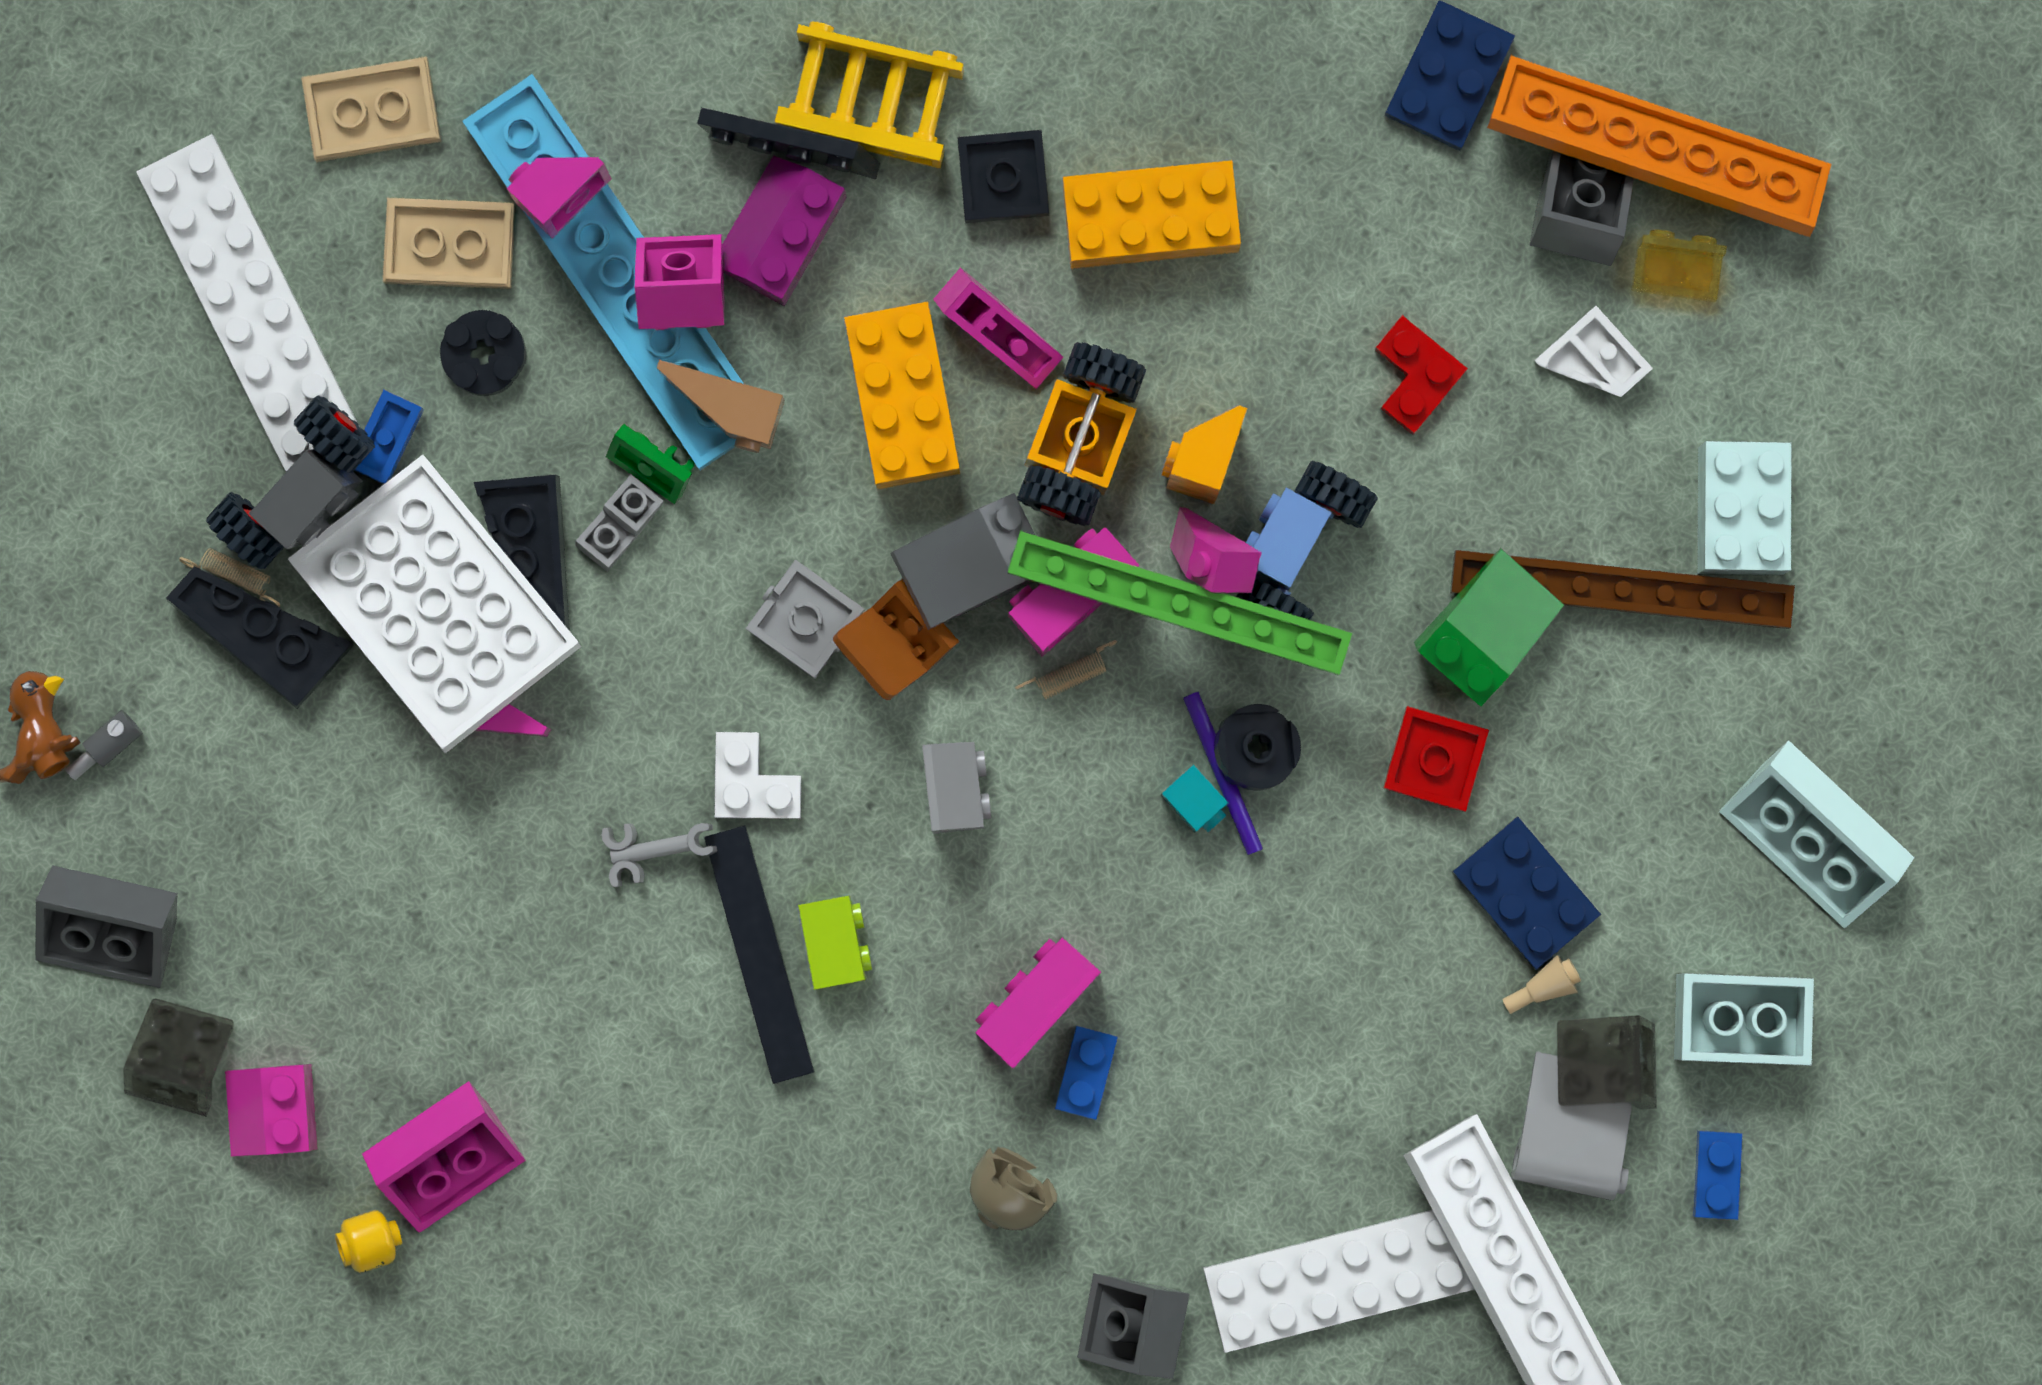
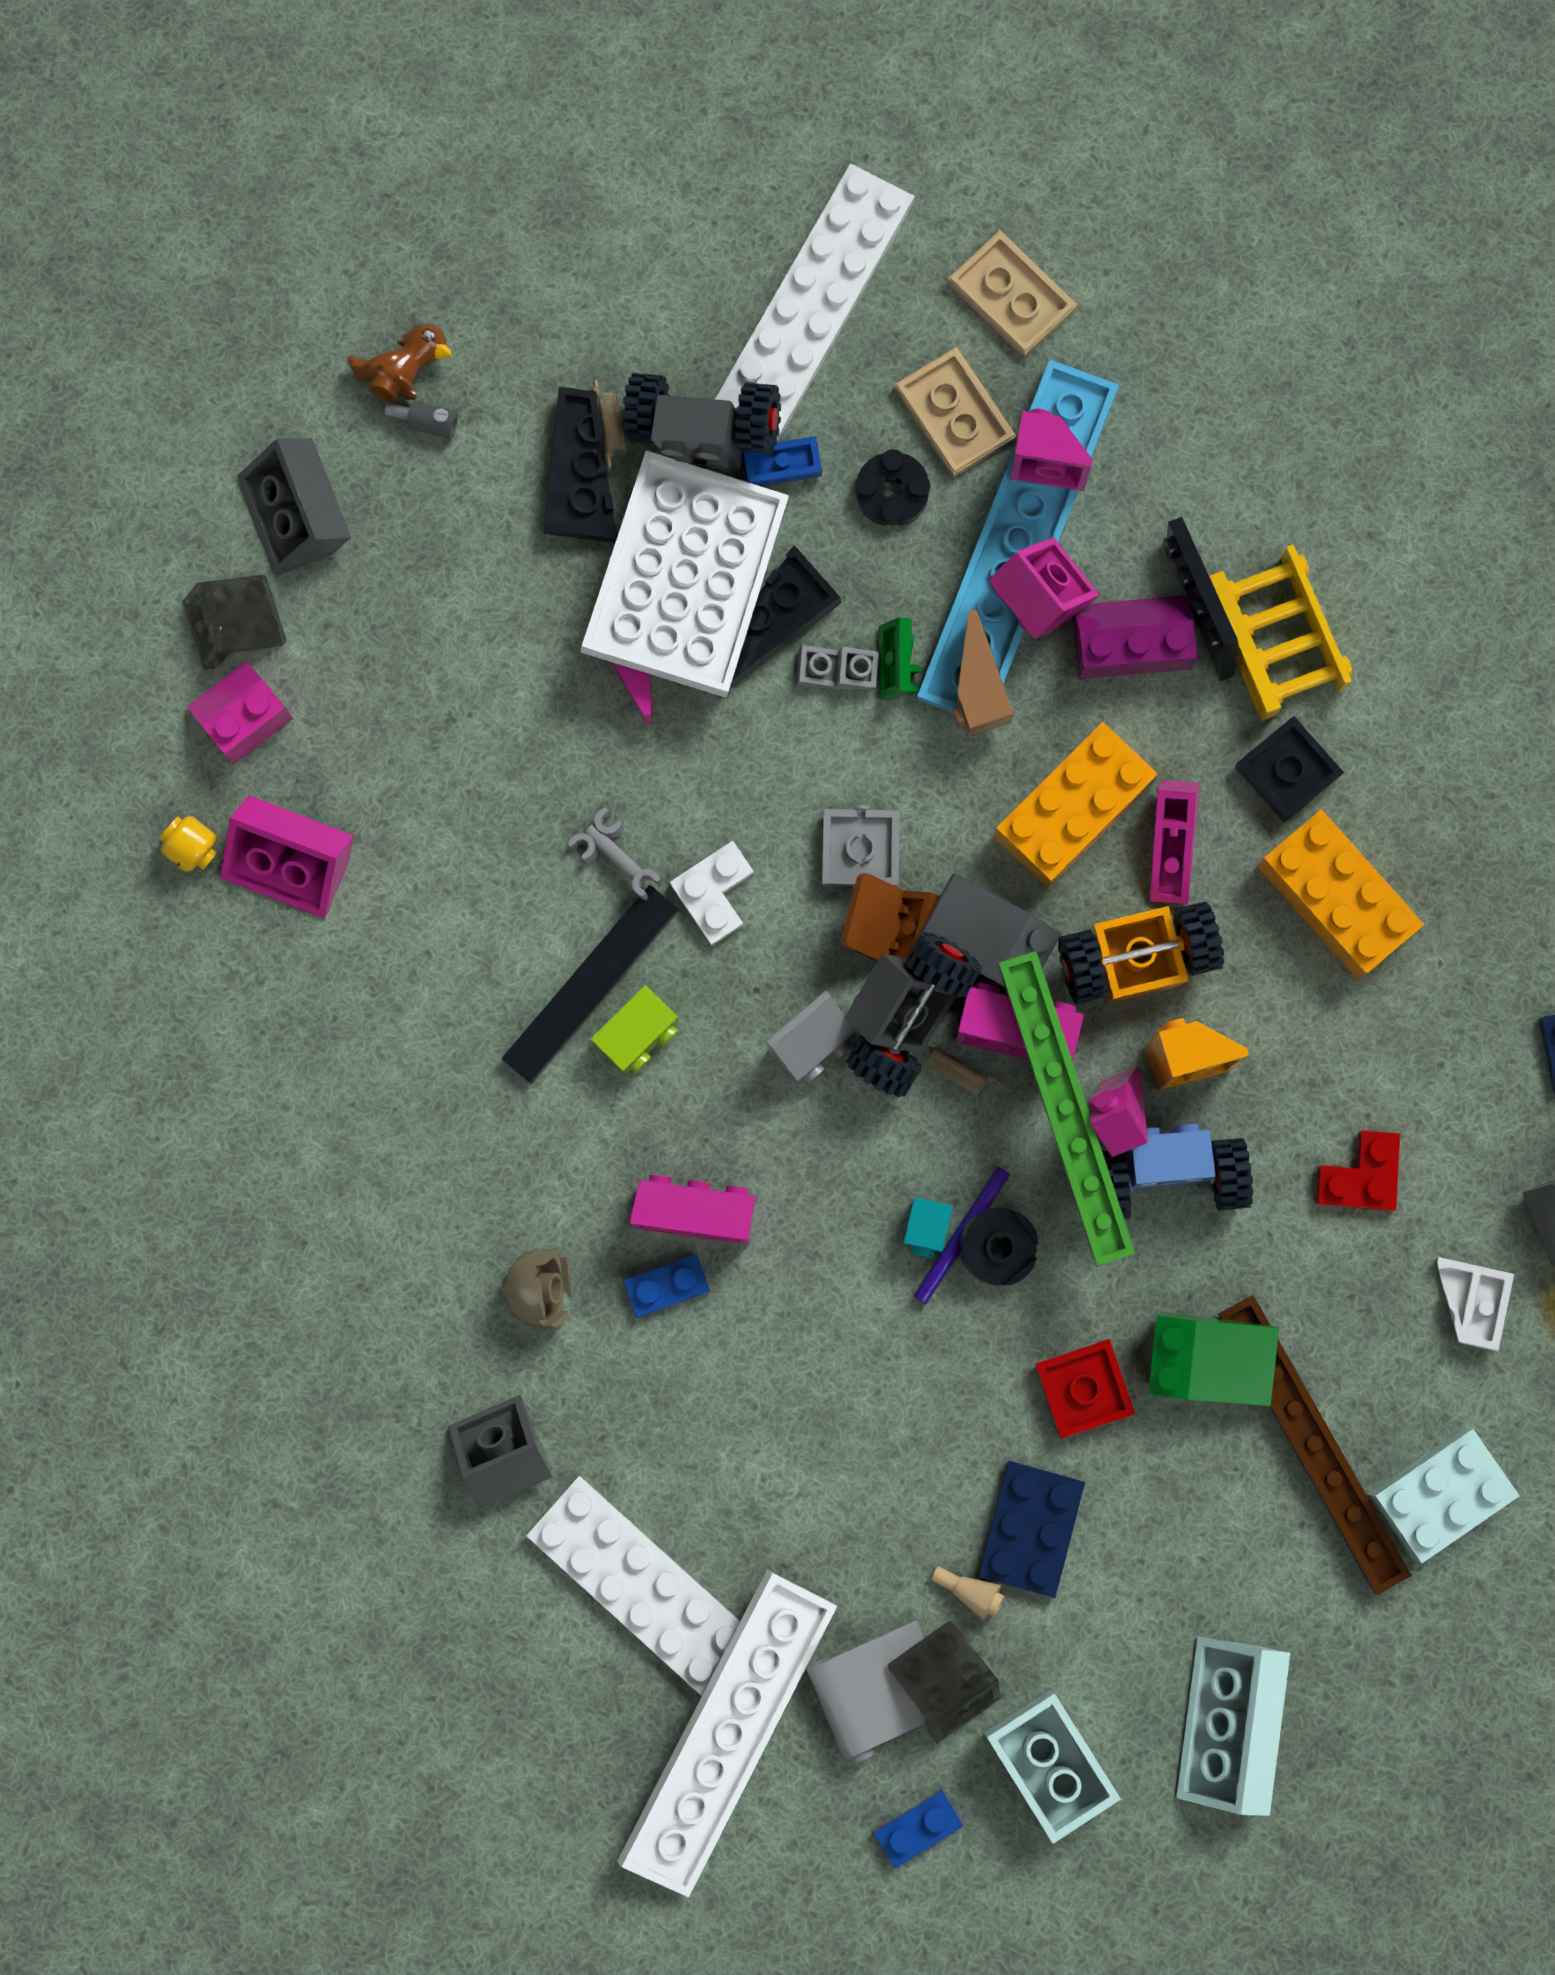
camera: 60 degrees right, 5 degrees down
(985, 685) = (903, 1009): none -> brick

